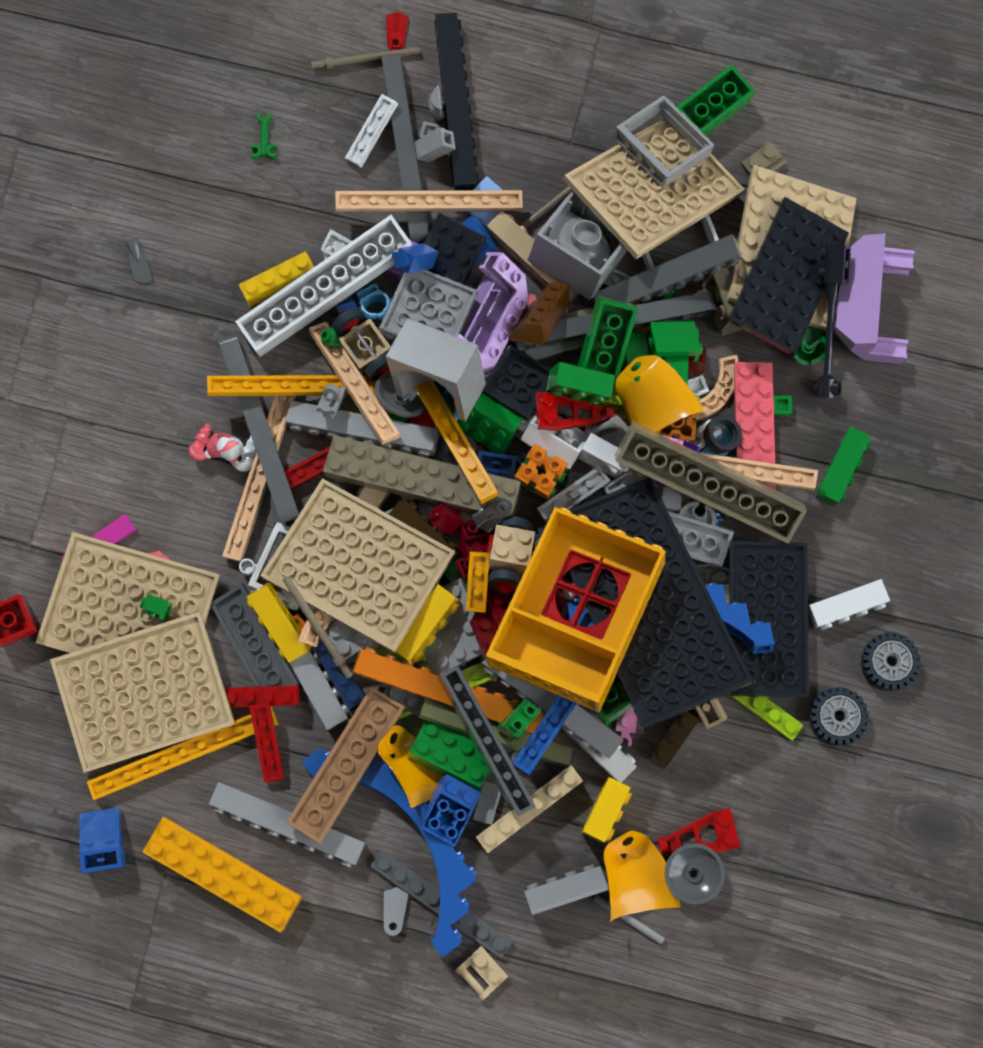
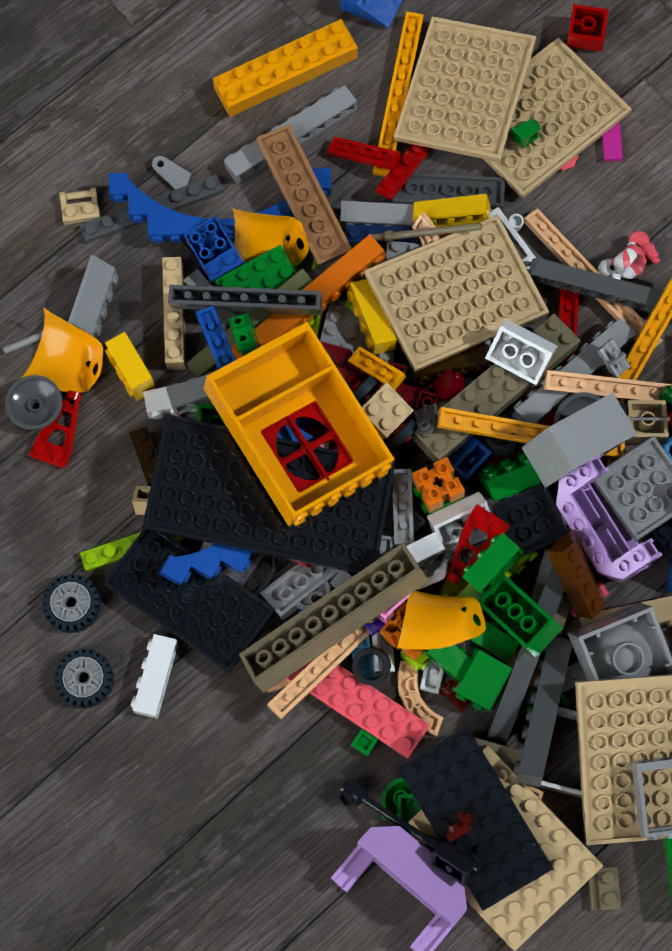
camera: 130 degrees right, 5 degrees down
(381, 471) = (521, 351): none -> white slope
(810, 276) = (456, 829): none -> clear red bracket
(842, 466) = (274, 756): green brick -> none

